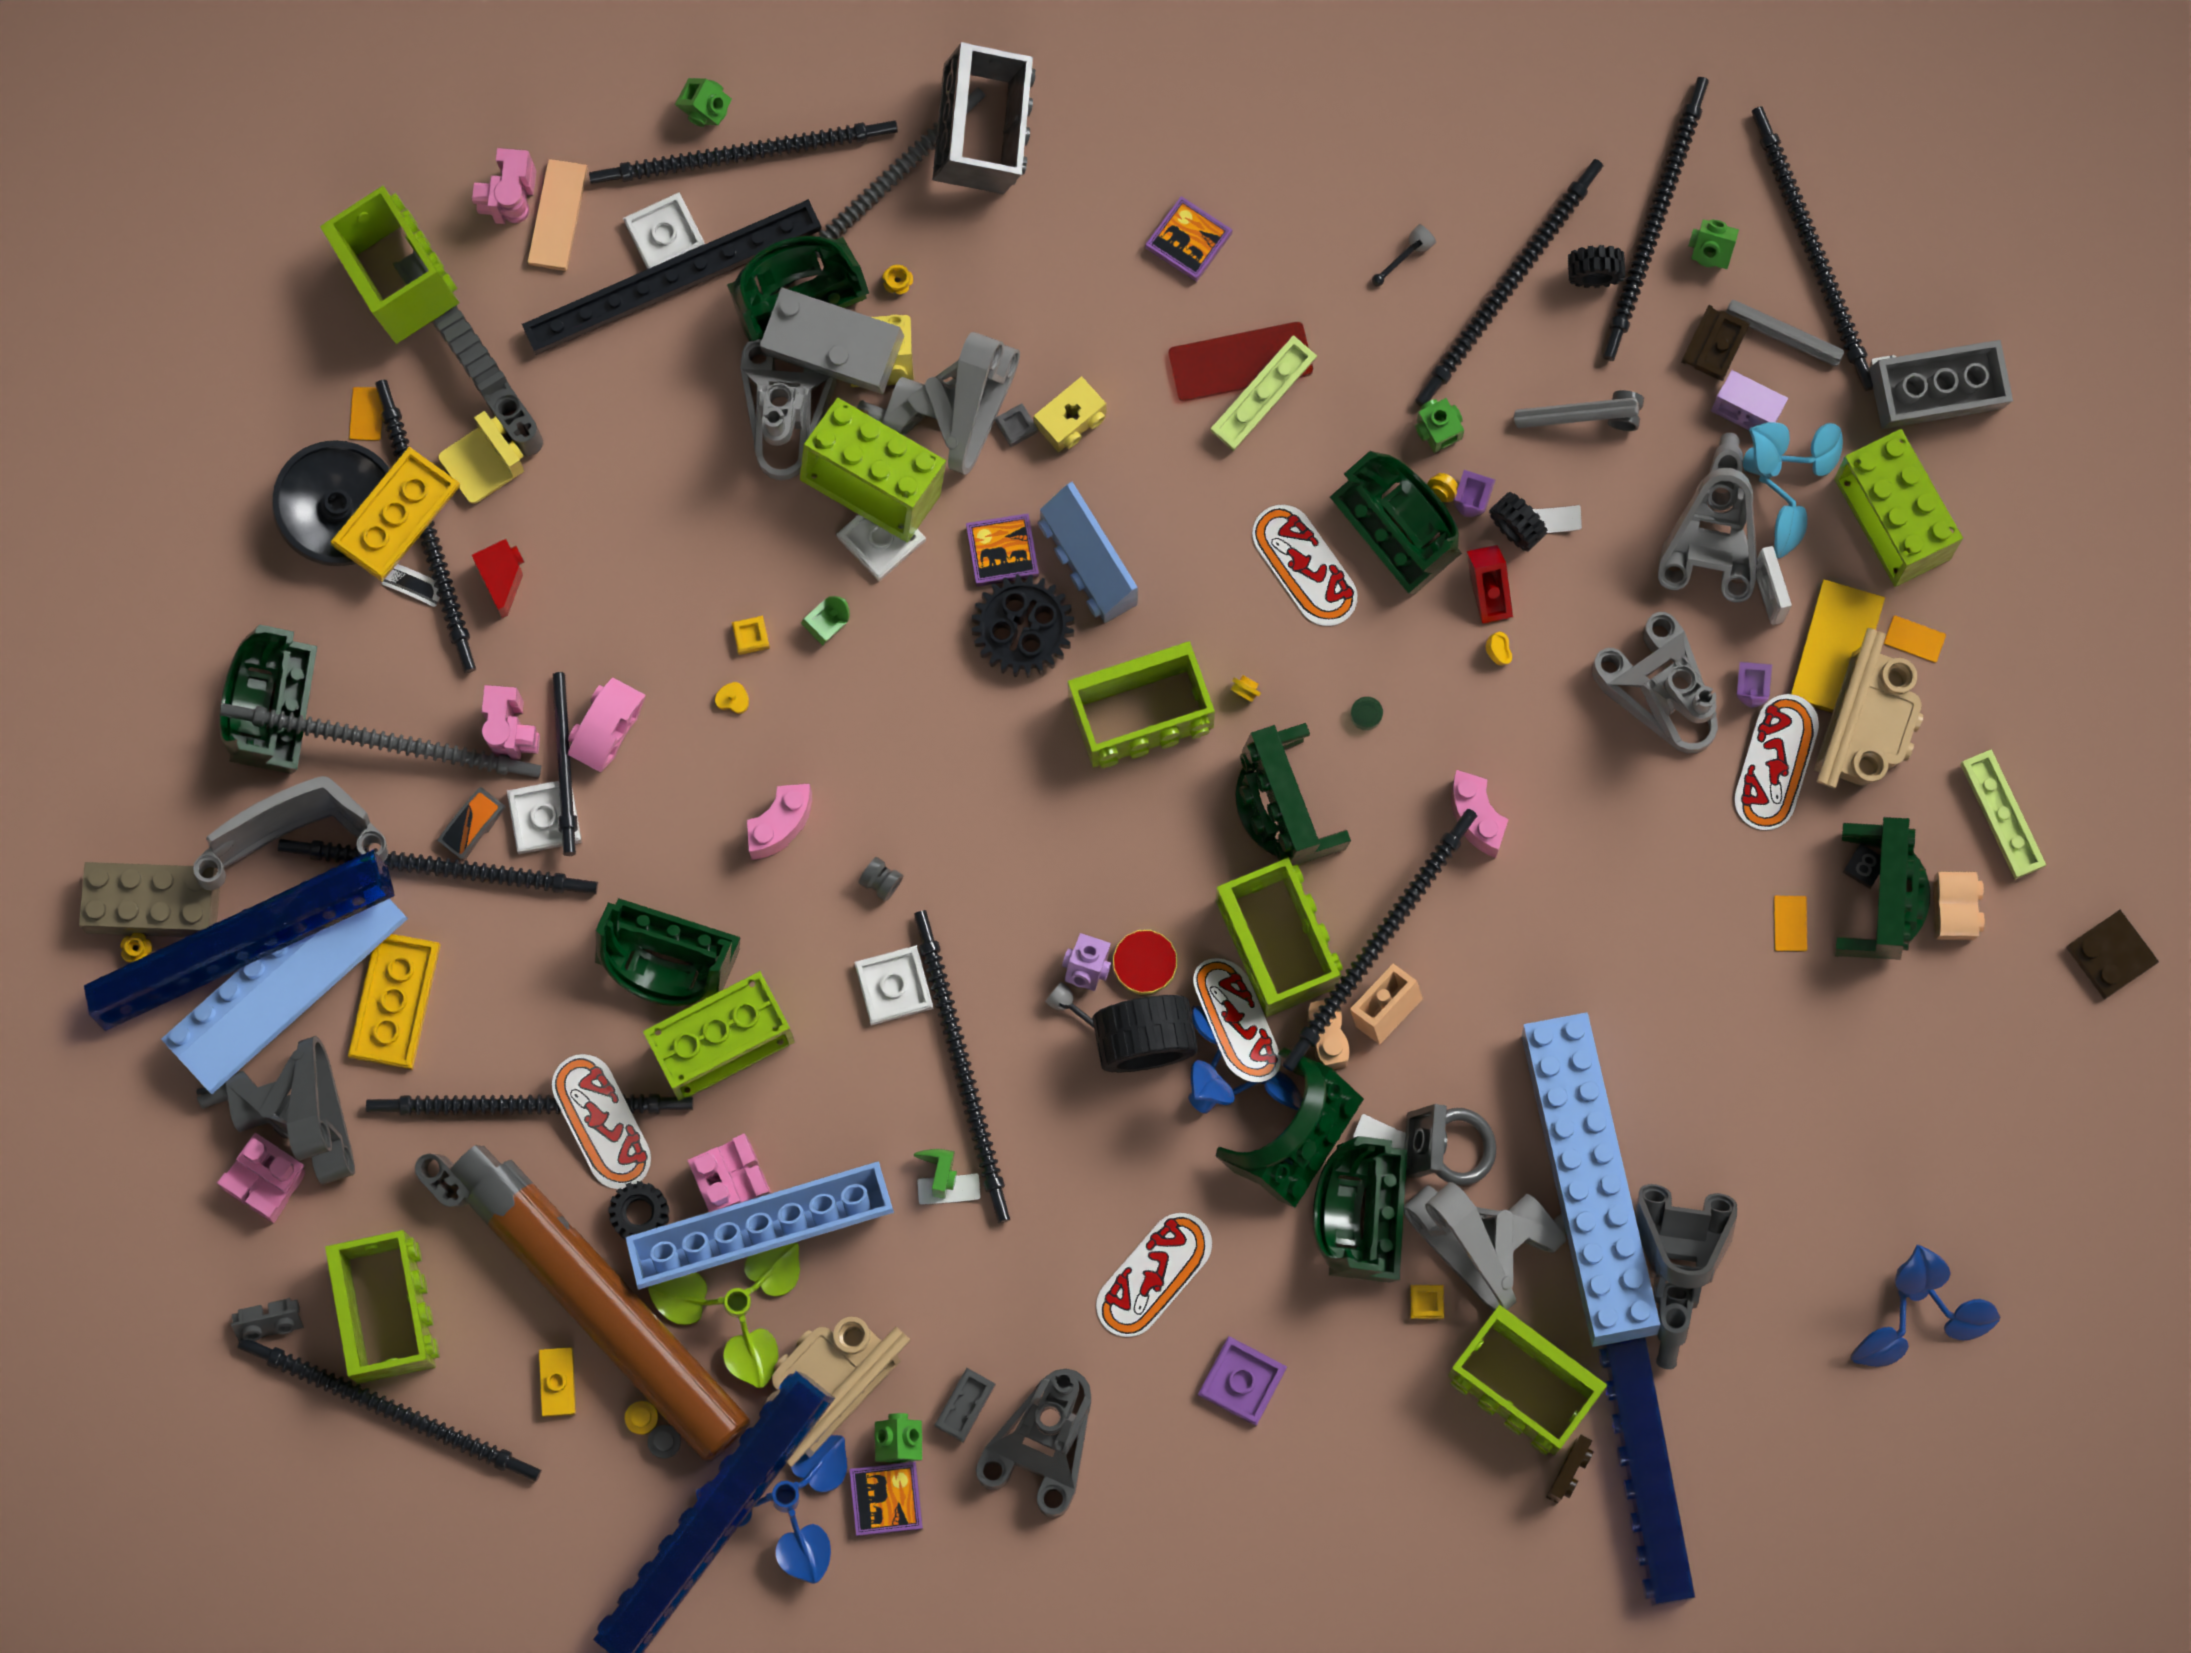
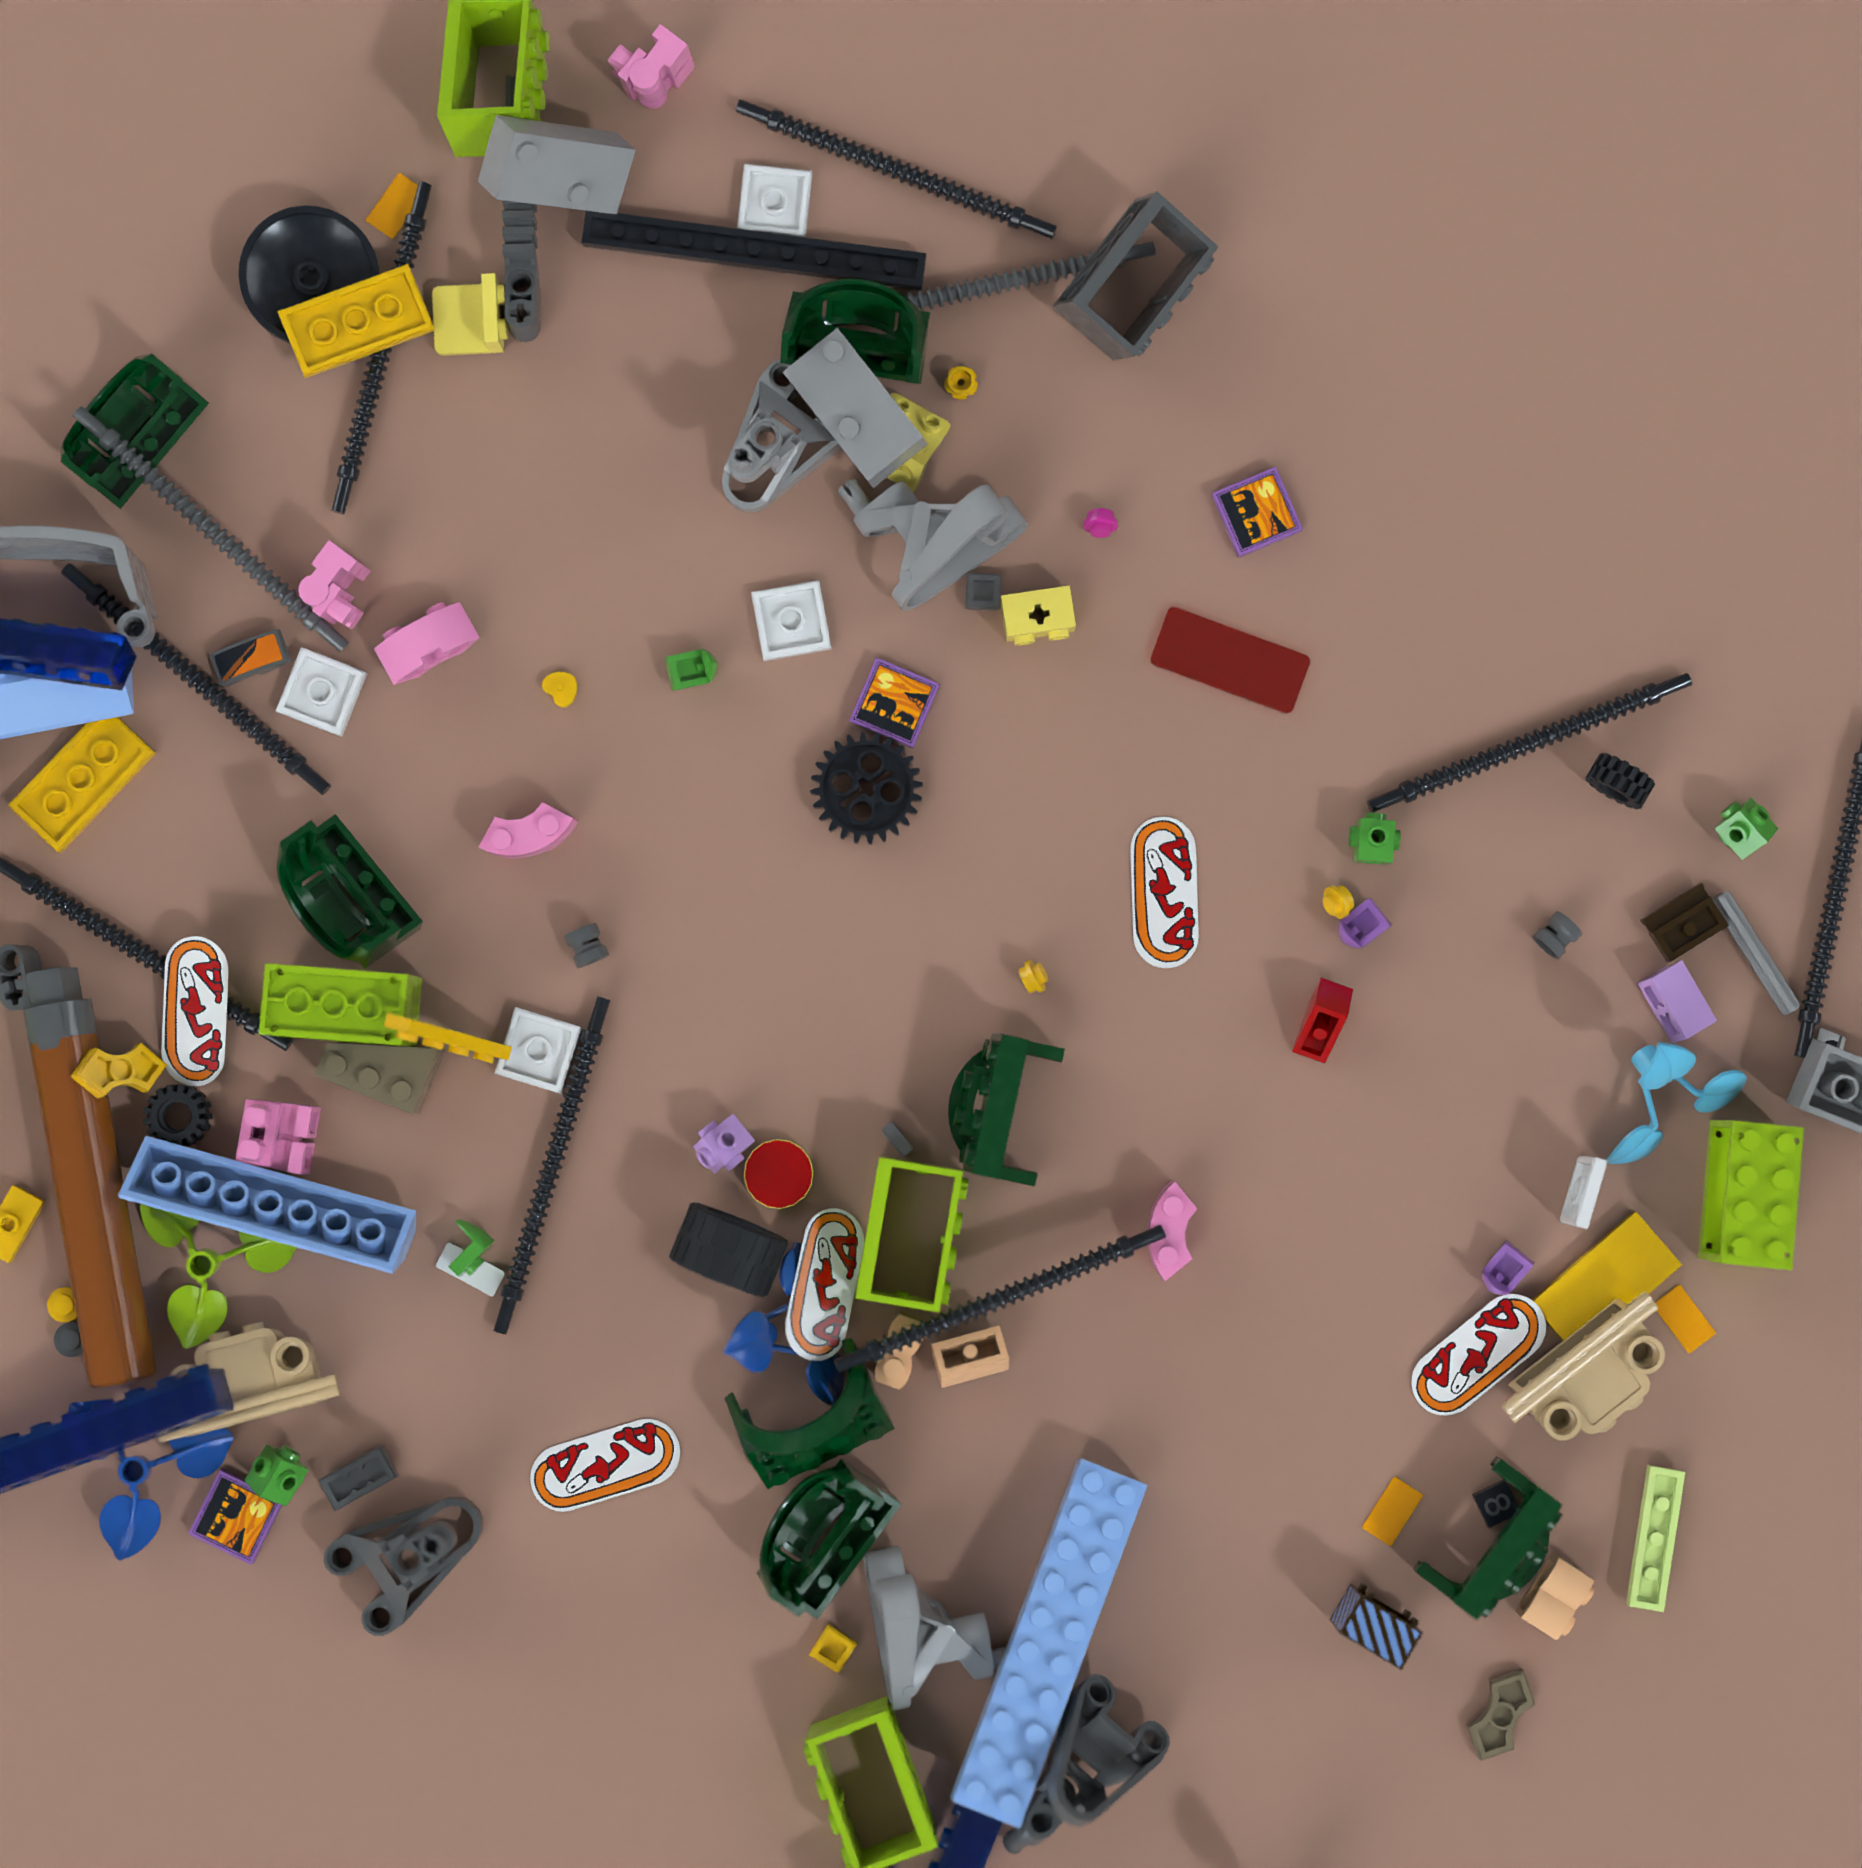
camera: 30 degrees right, 10 degrees up
(412, 584) = (337, 396): sticker -> none
(484, 298) = (556, 165): none -> light grey brick
(501, 573) = (419, 438): red slope -> none
(557, 215) = (687, 122): light nougat piece -> none
(563, 1204) = (102, 1071): none -> yellow tile
(567, 821) = (334, 712): black bar -> none
(703, 101) = (887, 97): bright green brick -> none
(750, 635) = (614, 639): yellow tile -> none
(780, 1075) = (381, 1072): none -> dark tan wedge
(819, 1004) = (436, 1037): none -> yellow plate
(872, 469) = (817, 554): lime hose -> none
(1063, 998) = (681, 1161): light grey hinge -> none
(1073, 318) = (1100, 522): none -> dark pink plate
(1088, 554) = (967, 759): light blue slope -> none
(1131, 676) = (930, 900): lime hose -> none
(1218, 874) = (897, 1139): none -> flat silver tile
(1242, 1381) = (621, 1613): medium lavender tile -> none
(1263, 393) = (1230, 706): yellowish green plate -> none
(1366, 713) = (1130, 1069): clear green tile -> none
(1375, 1129) = (893, 1473): white sticker -> none
(1413, 508) = (1298, 904): dark green piece -> none
(1419, 240) = (1471, 650): hinge -> none
(1428, 1142) = (925, 1509): dark grey tile -> none
(1498, 648) = (1291, 1085): yellow piece -> none
(1518, 521) = (1386, 980): black tyre -> none
(1561, 518) = (1420, 993): white sticker -> none
(1576, 412) = (1509, 910): light grey axle -> none
(1662, 696) = (1433, 1267): light grey connector -> none
(1691, 113) = (1808, 685): black hose -> none
(1713, 549) = (1550, 1121): light grey connector -> none
(1834, 1010) = (1376, 1625): none -> container
(1978, 1039) = (1507, 1701): none -> dark tan tile
(2112, 954) = (1669, 1730): dark brown plate -> none

